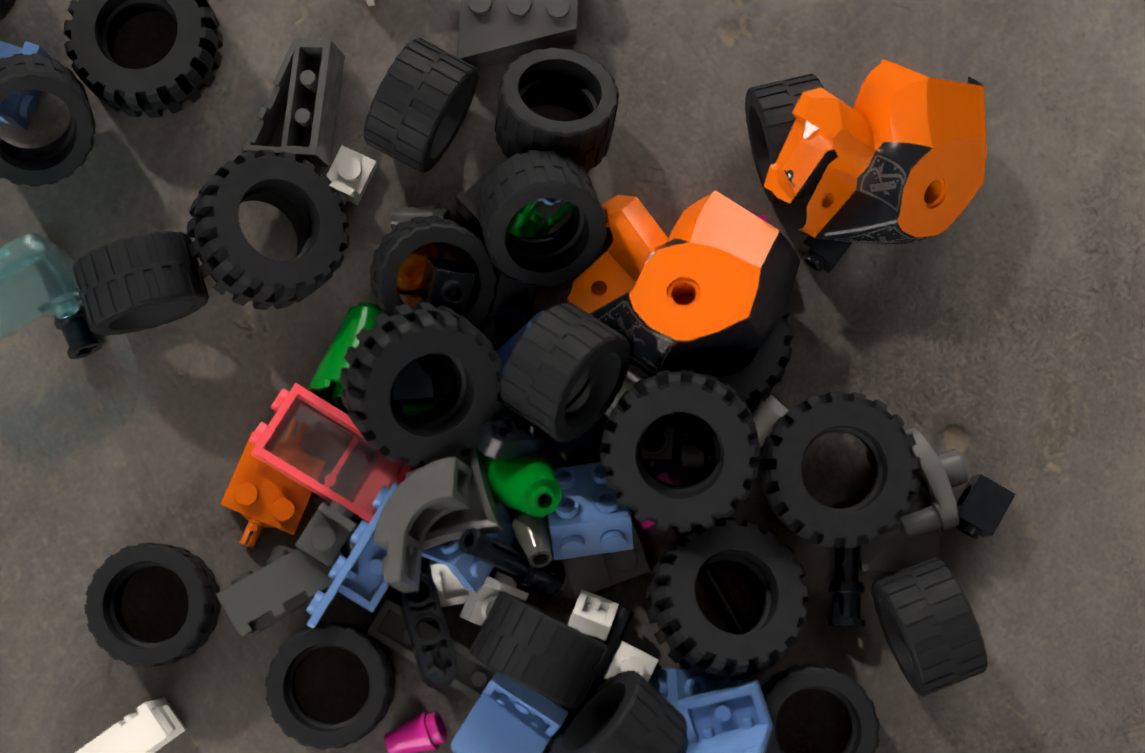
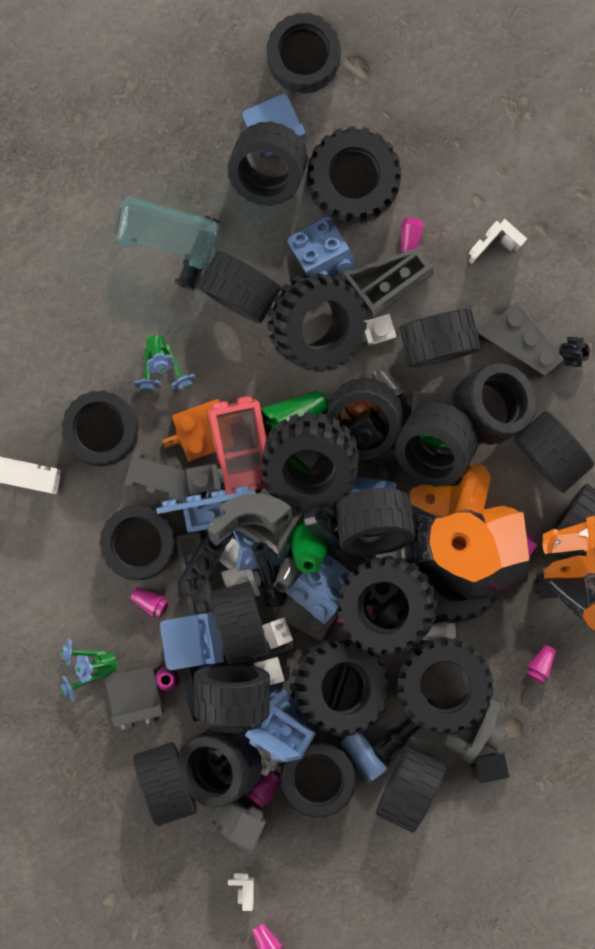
camera: 50 degrees right, 5 degrees up
(138, 456) = (160, 364): none -> plant
(193, 151) = (322, 249): none -> medium blue bracket
(271, 35) = (411, 233): none -> dark pink cone
(675, 93) = (554, 451): none -> black tyre
(834, 647) = (362, 756): none -> medium blue brick
(911, 339) = (541, 665): none -> dark pink cone

